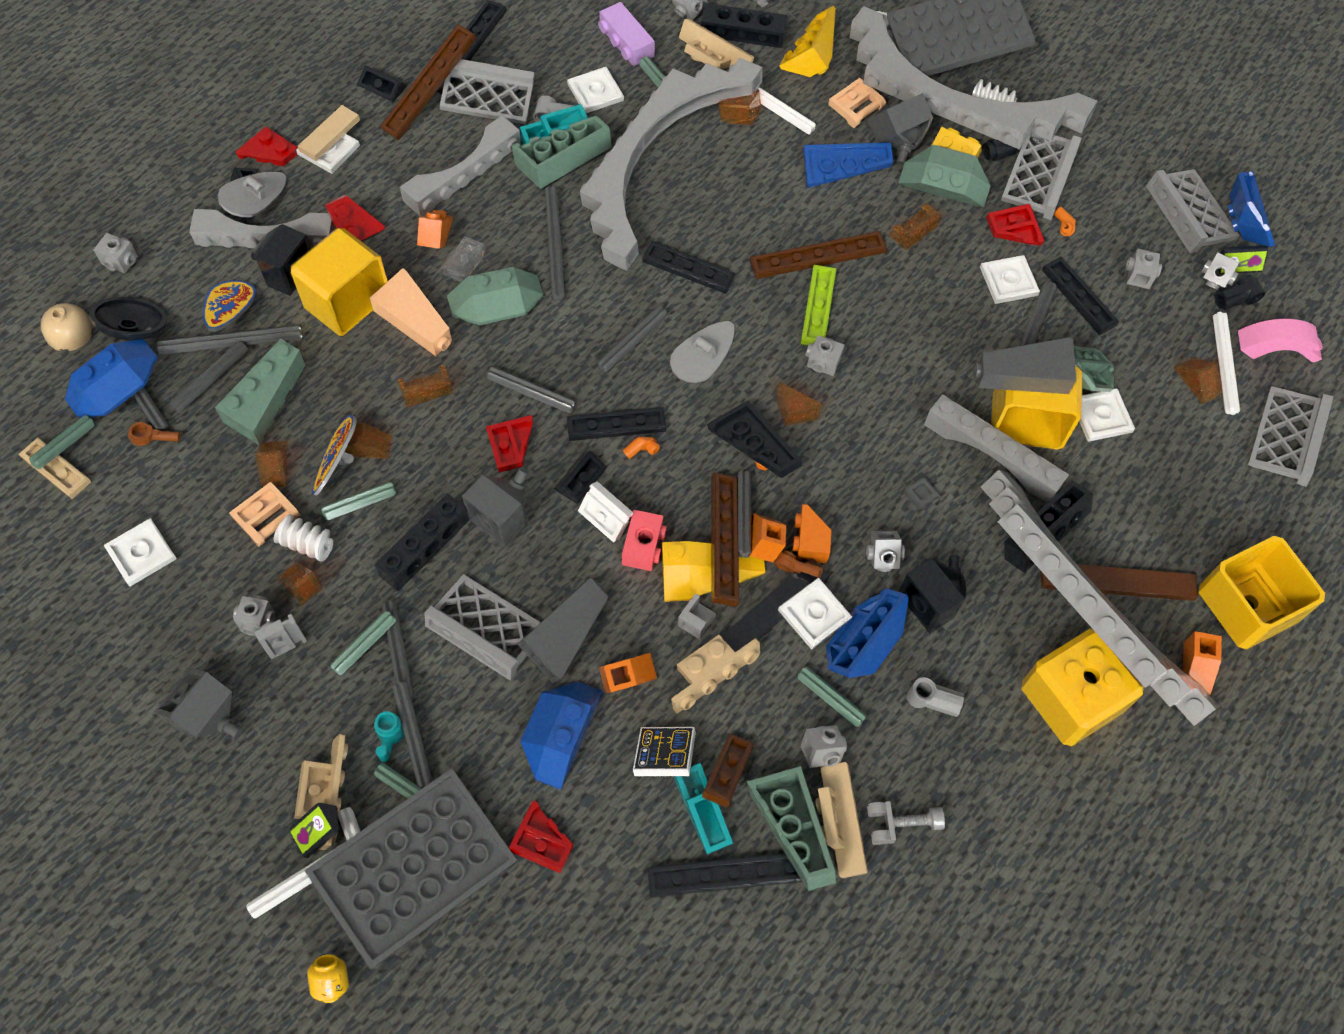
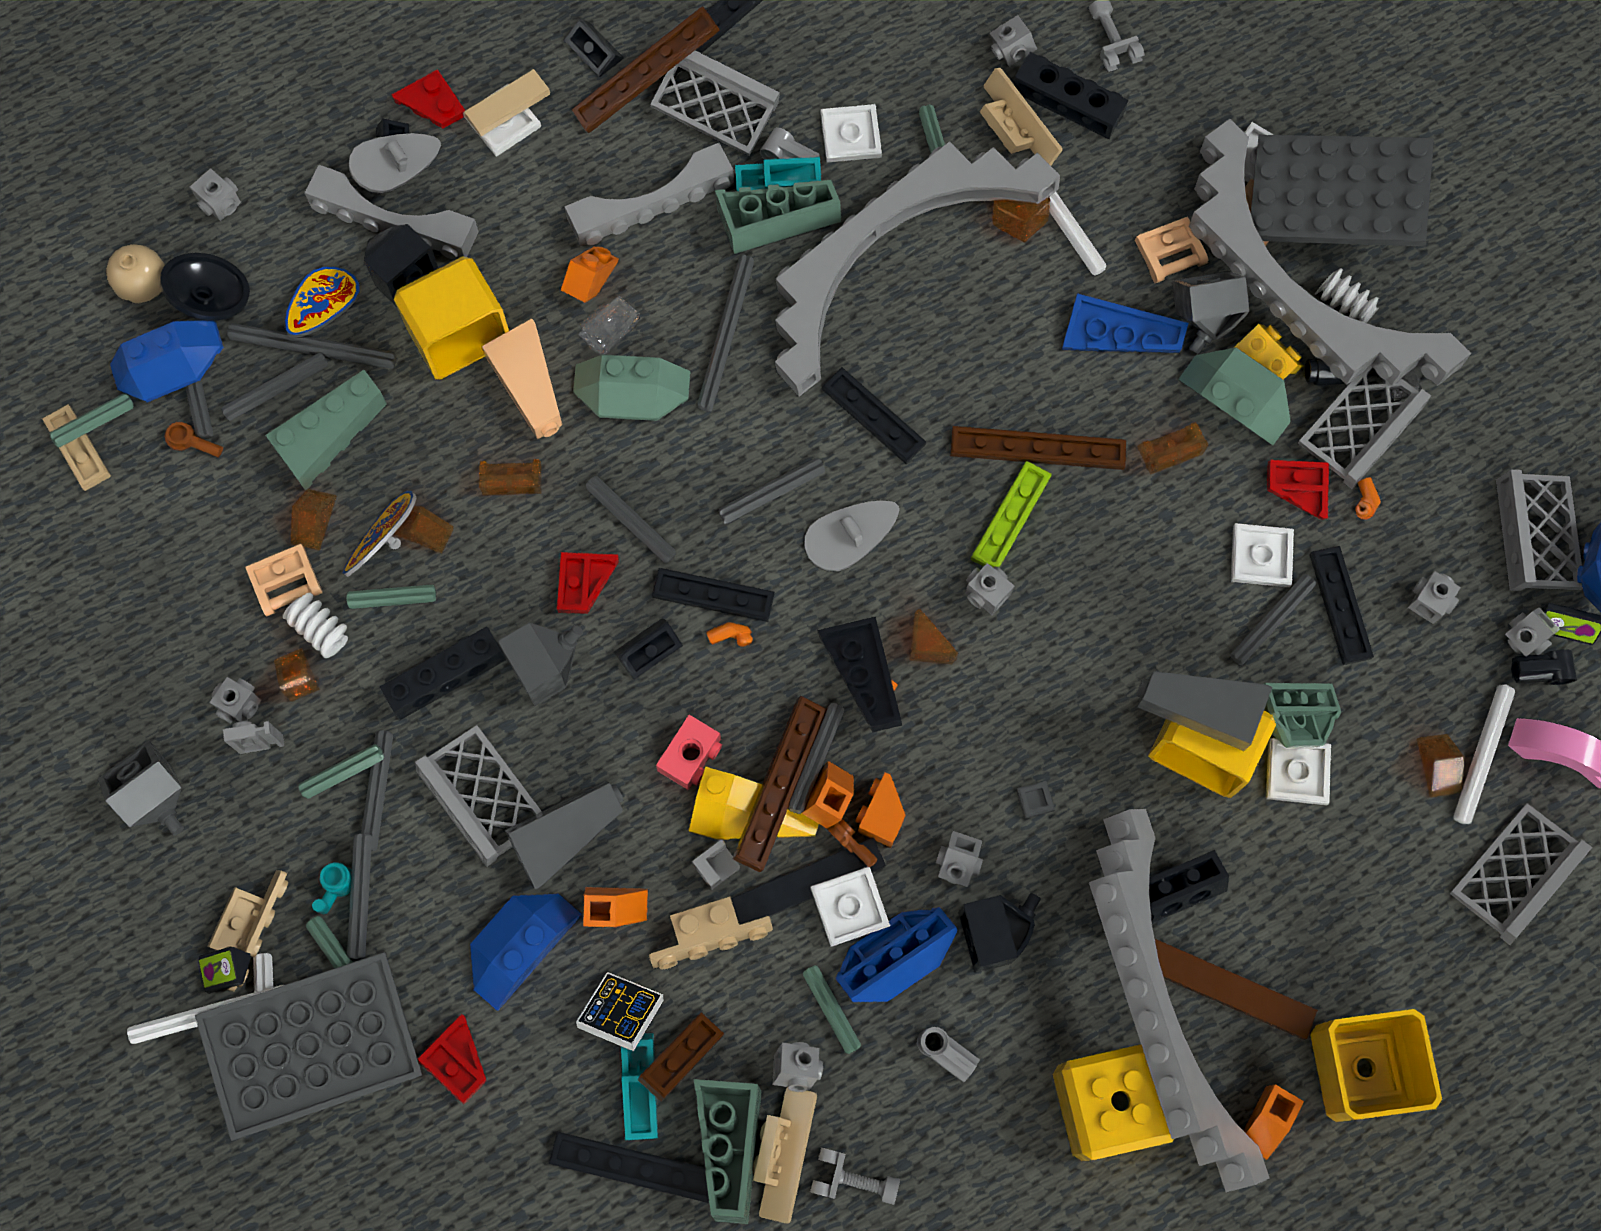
camera: 20 degrees right, 10 degrees up
(140, 552) = (138, 580): white tile -> none
(327, 978) = (187, 1132): yellow head -> none
(353, 218) = (495, 235): red wing -> none
(605, 511) = (658, 704): white plate -> none
(626, 33) = (916, 65): lavender brick -> none
(814, 47) = (1148, 155): yellow wedge -> none
(1030, 469) = (1170, 809): light grey arch -> none

